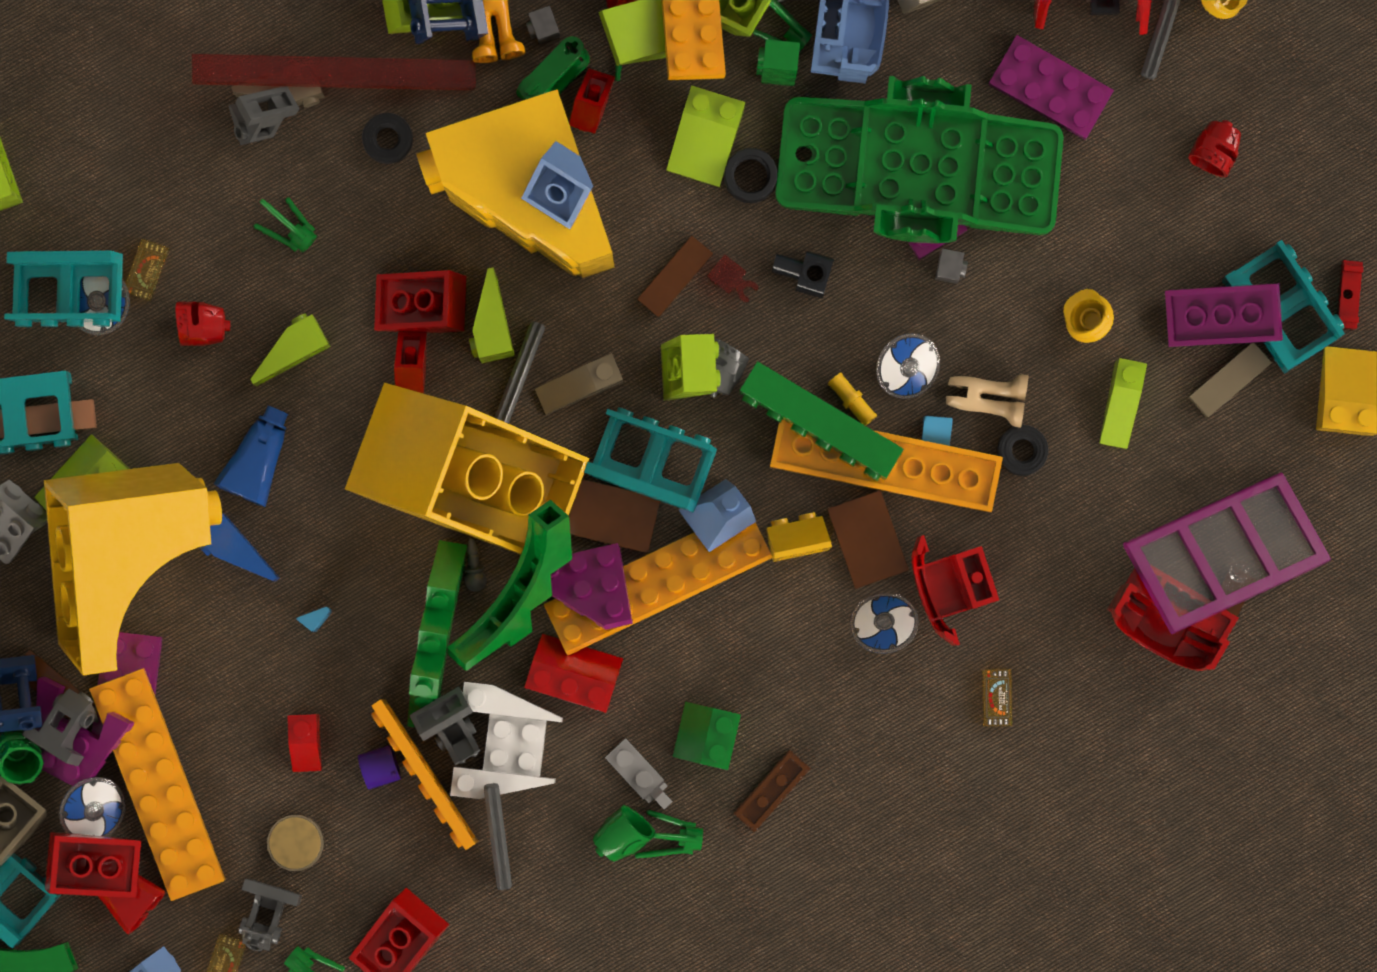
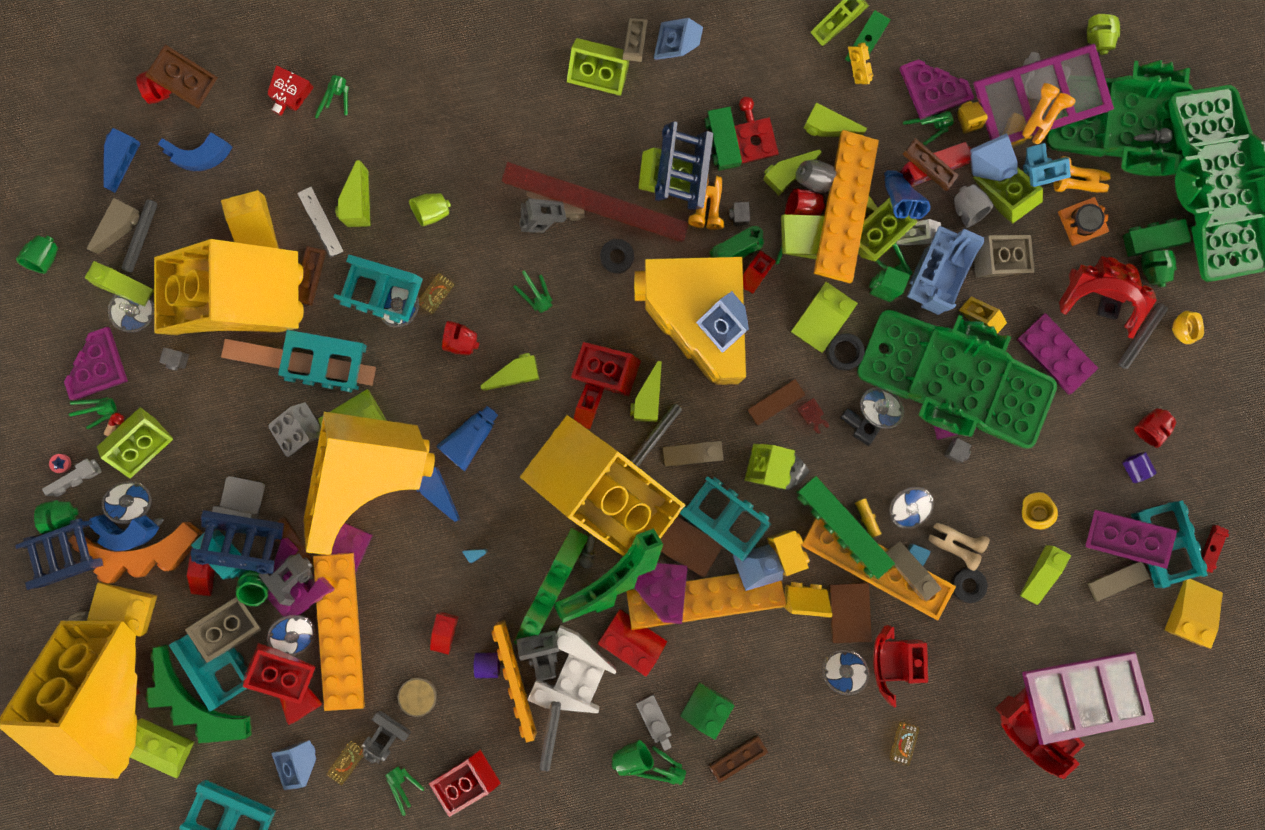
camera: 15 degrees right, 0 degrees up
(101, 151) = (429, 208): none -> lime helmet
(753, 478) = (789, 551): none -> yellow brick
(825, 239) = (882, 408): none -> clear shield
(929, 62) = (982, 312): none -> yellow slope
(933, 453) = (913, 572): none -> dark tan slope
(1210, 212) = (1139, 467): none -> dark purple piece

